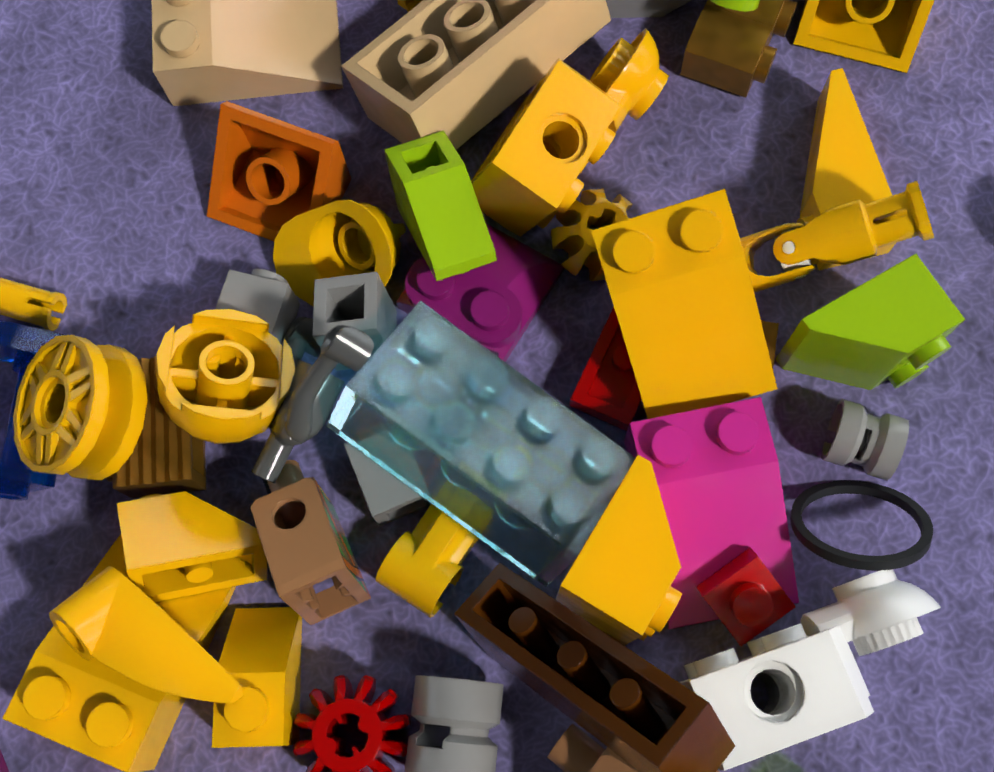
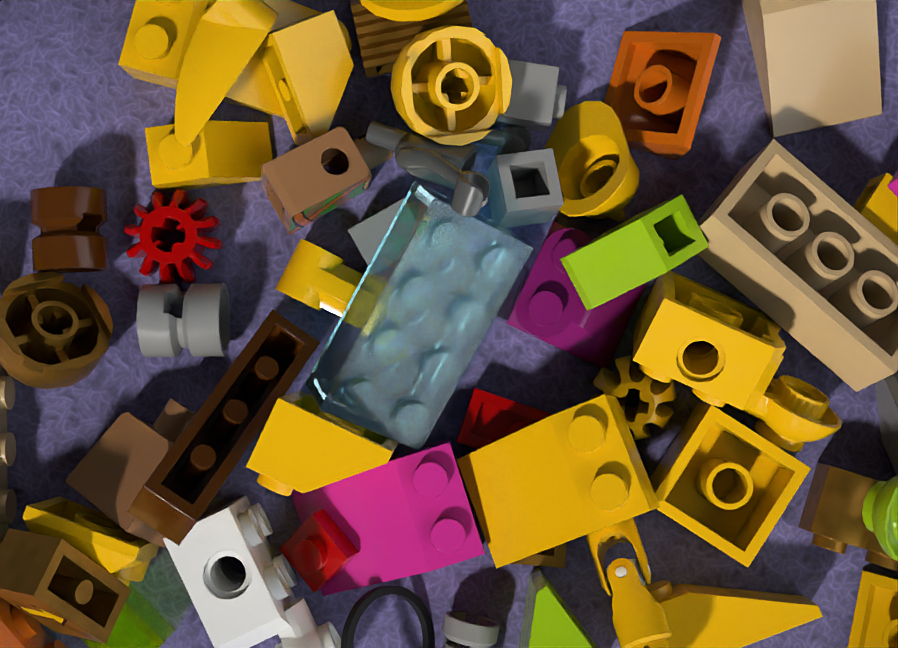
camera: 80 degrees right, 15 degrees up
(694, 142) = (726, 482): none -> yellow brick

